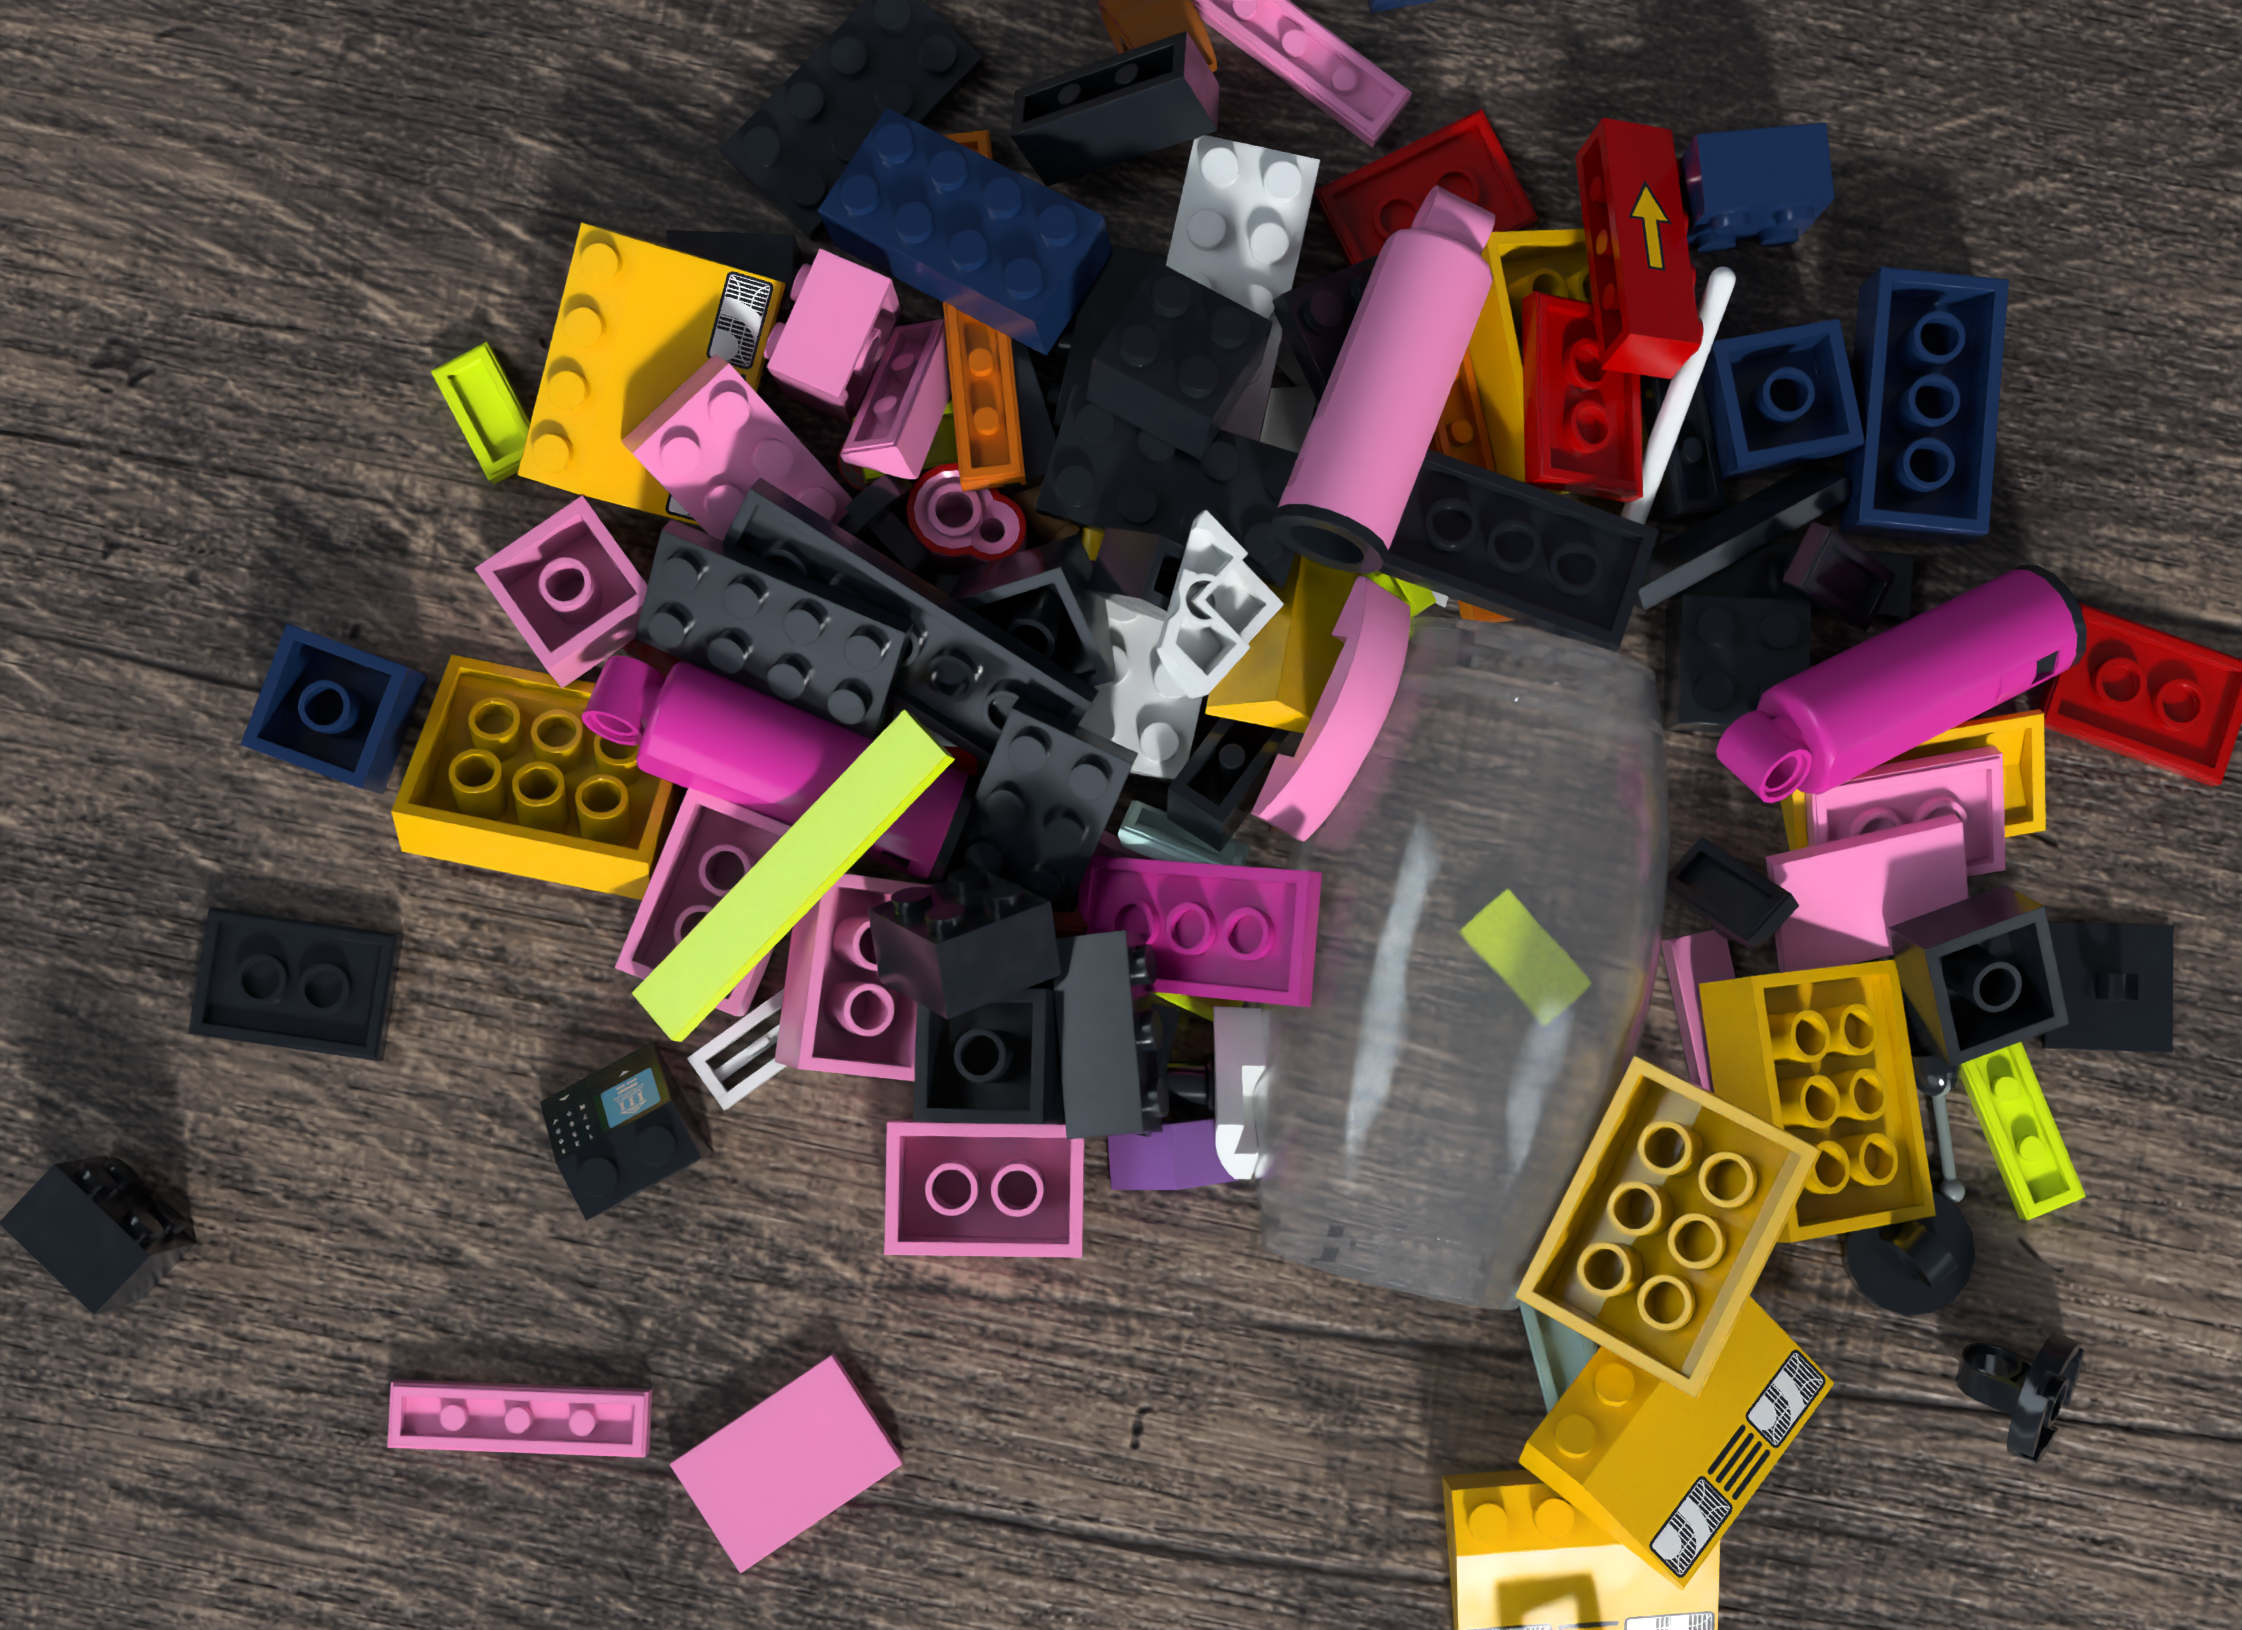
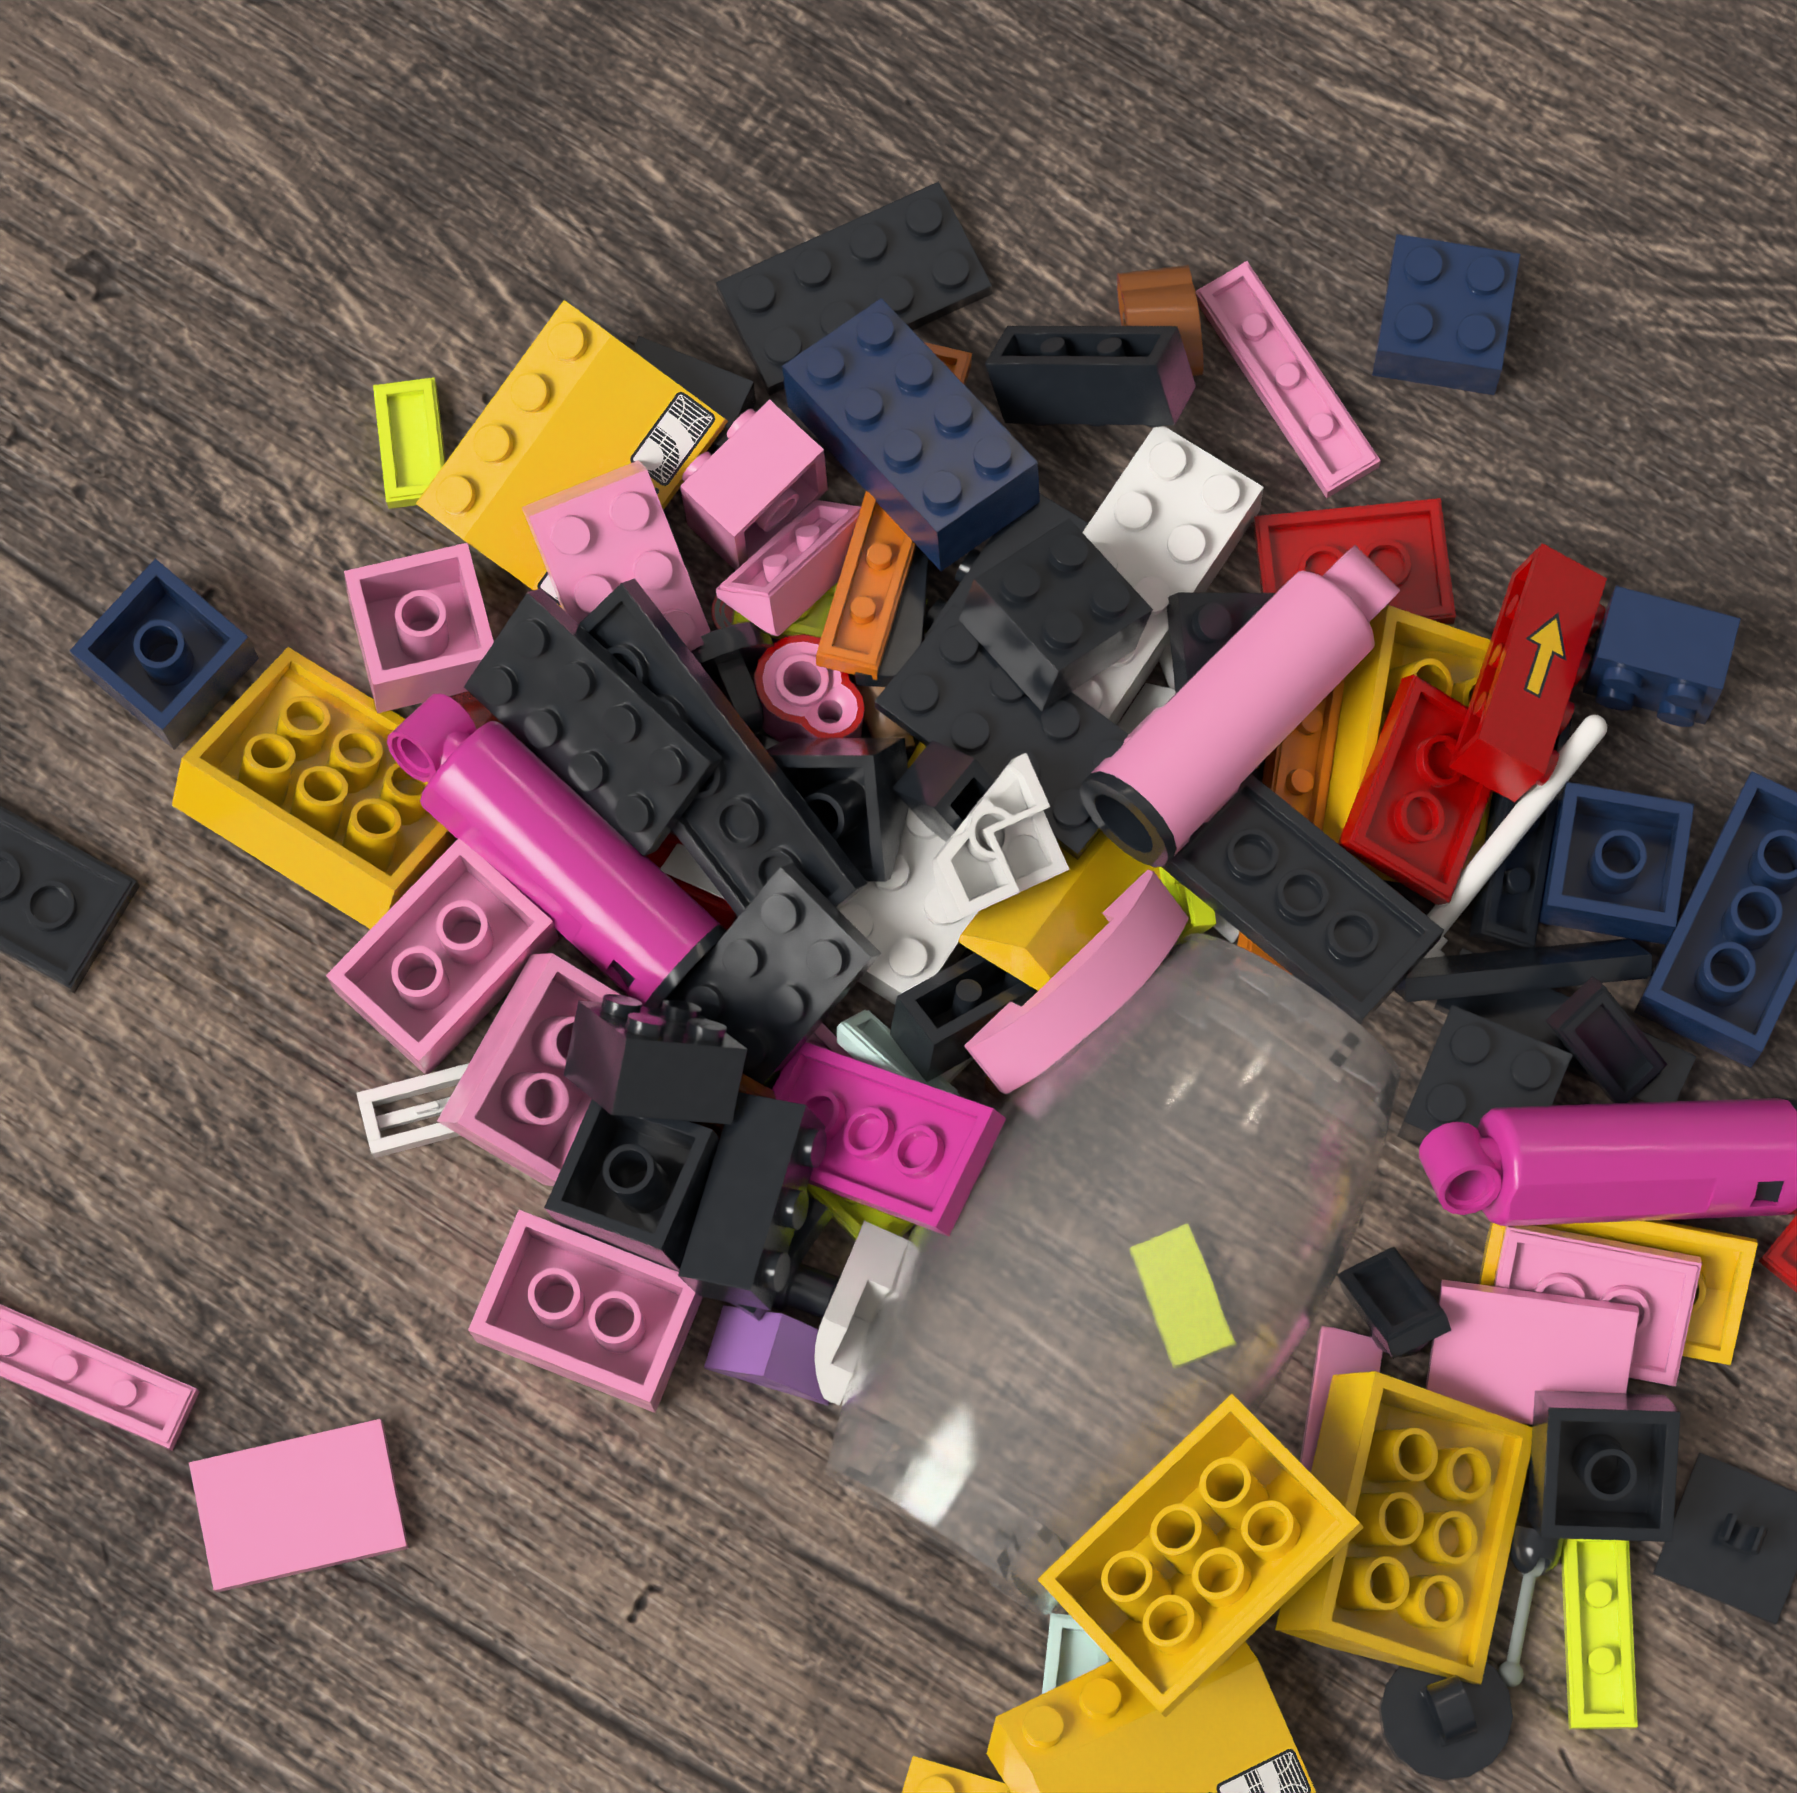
camera: 25 degrees right, 10 degrees down
(622, 1131) = (271, 1140): black slope -> none
(792, 876) = (521, 946): neon yellow tile -> none

